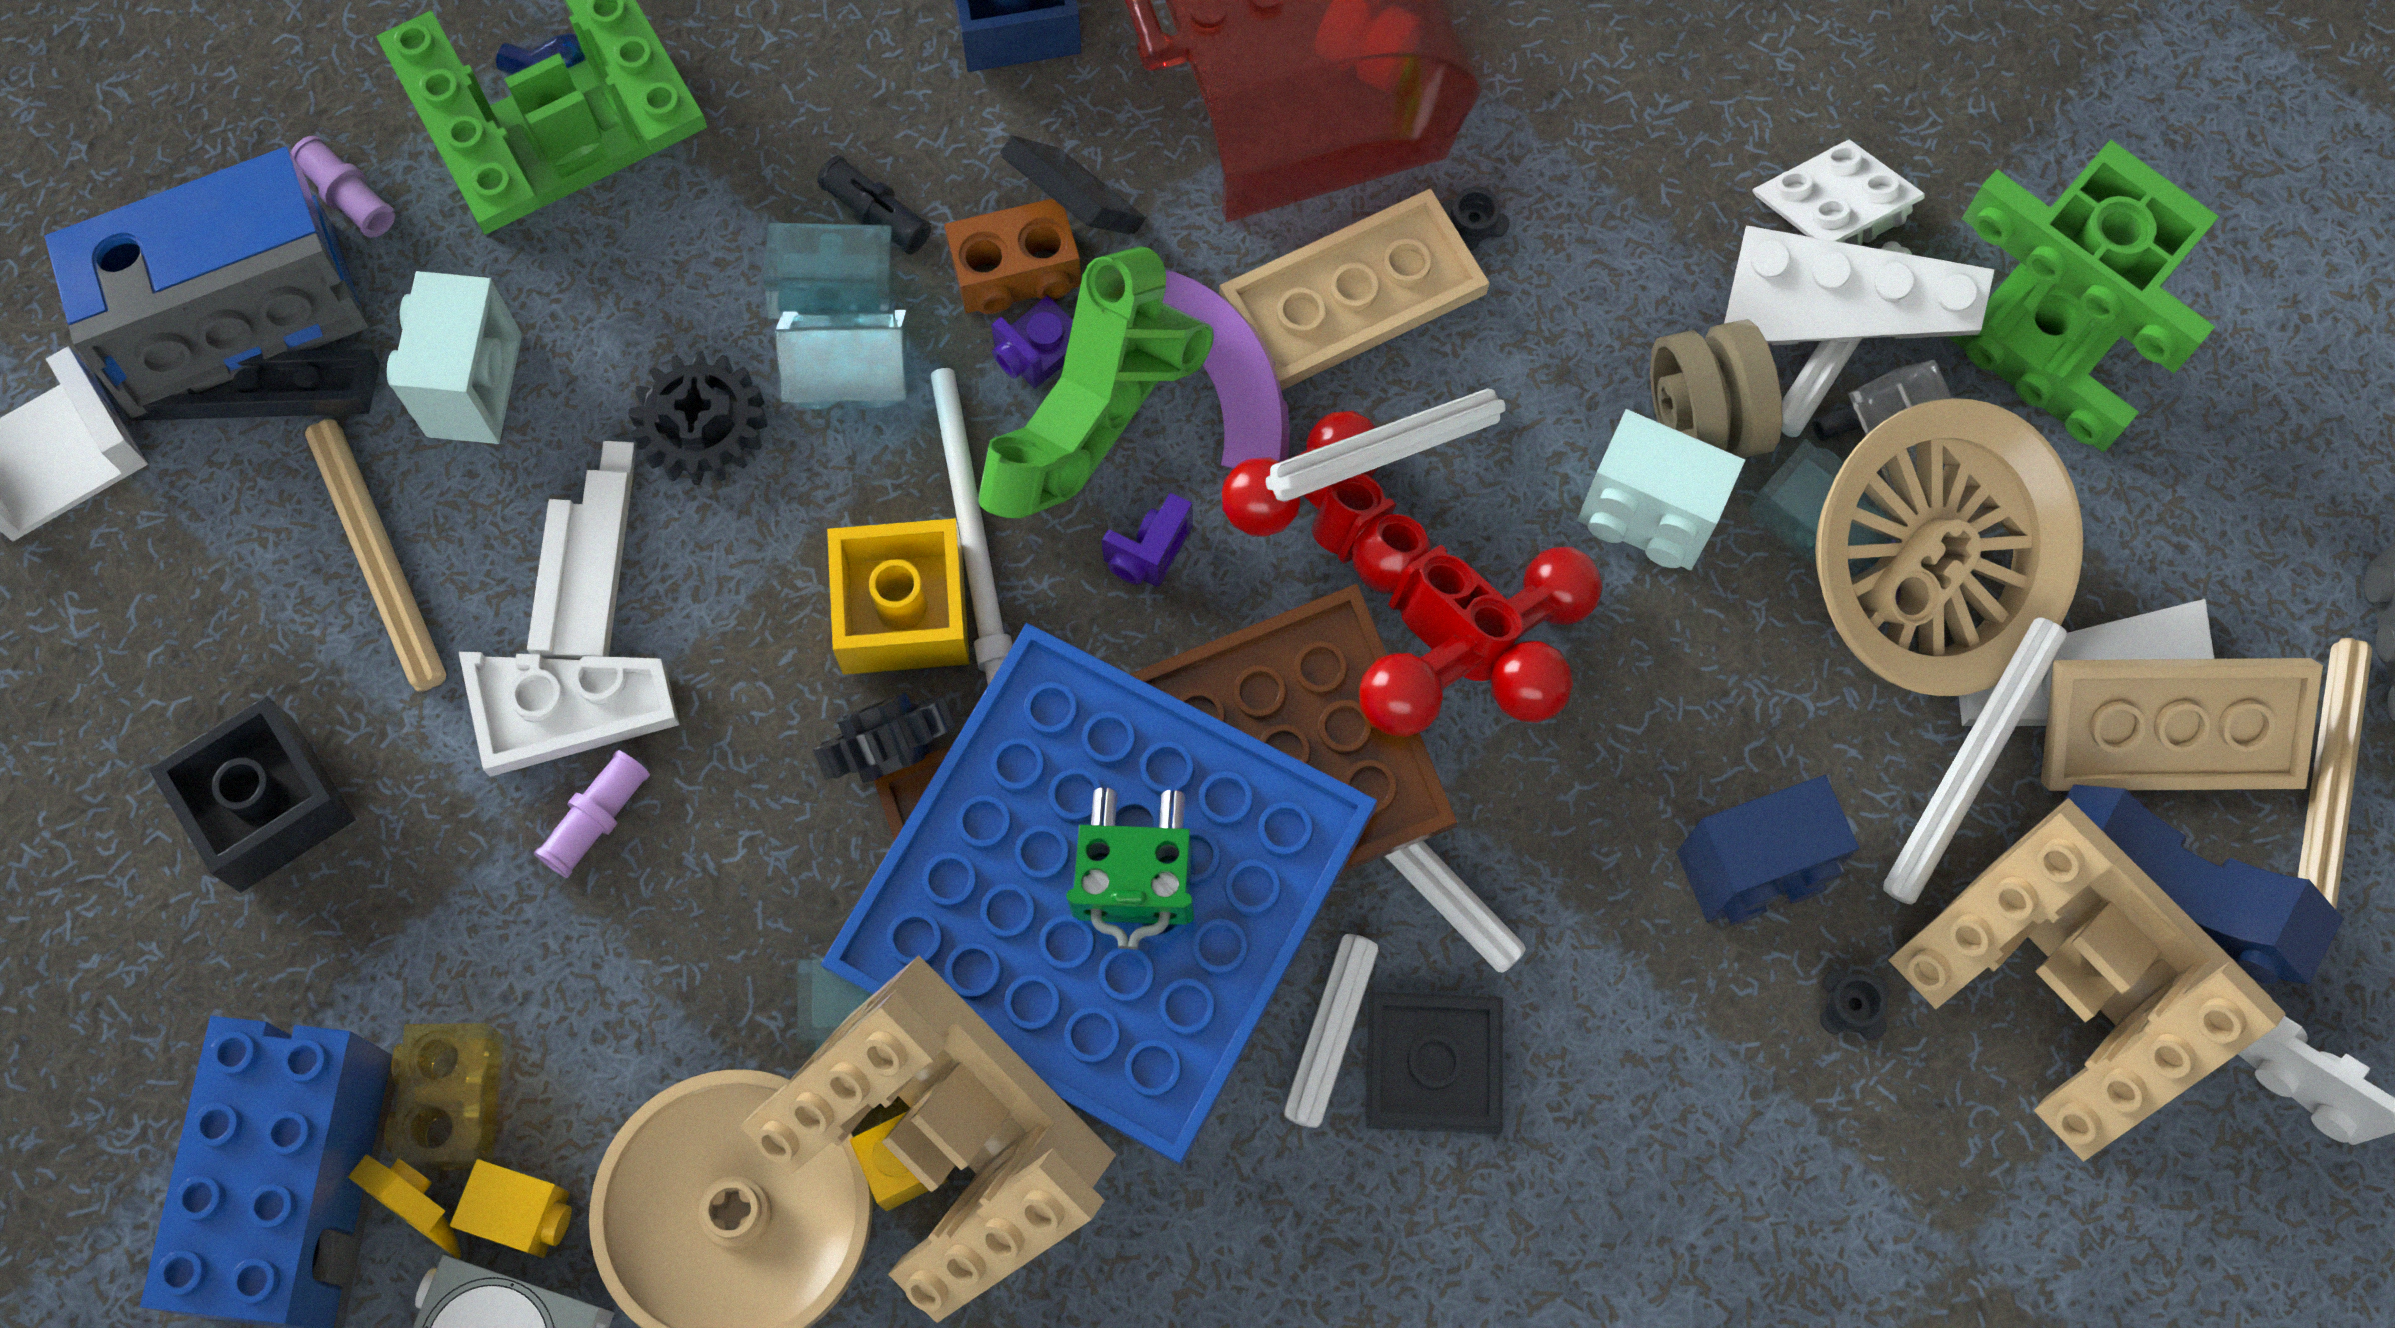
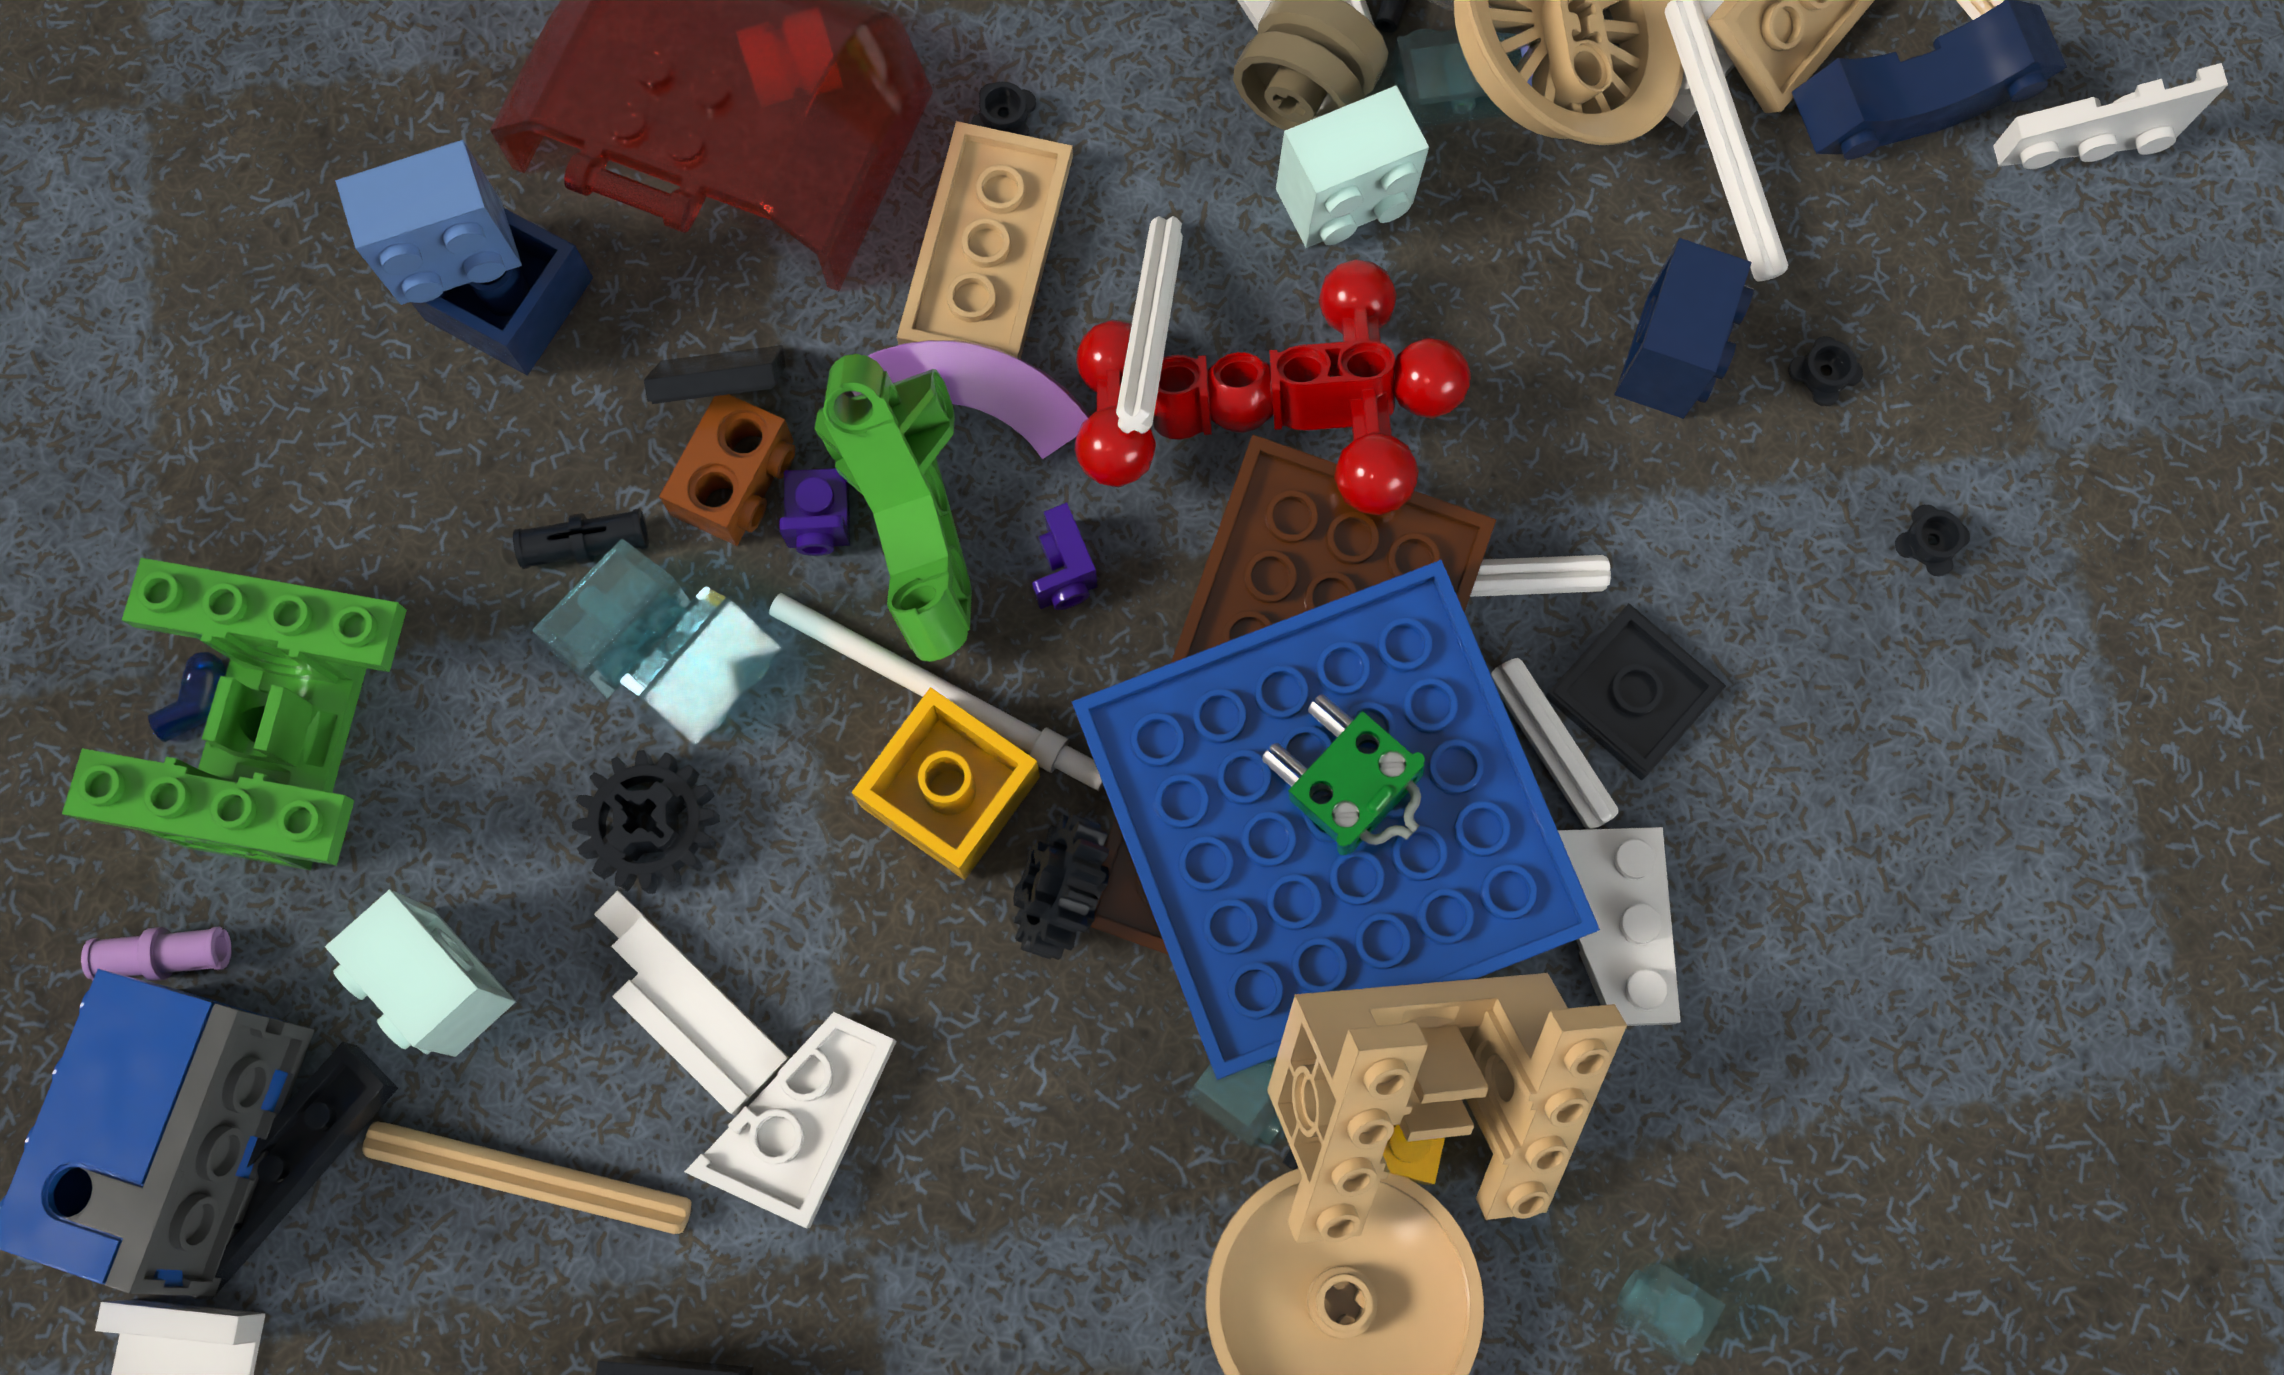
camera: 50 degrees left, 5 degrees up
(592, 814) = (916, 1168): lavender pin -> none
(1232, 1195) = (1629, 895): none -> white wing
(1801, 1195) = (1945, 527): none -> black plate
(2111, 949) = (1950, 164): tan piece -> none

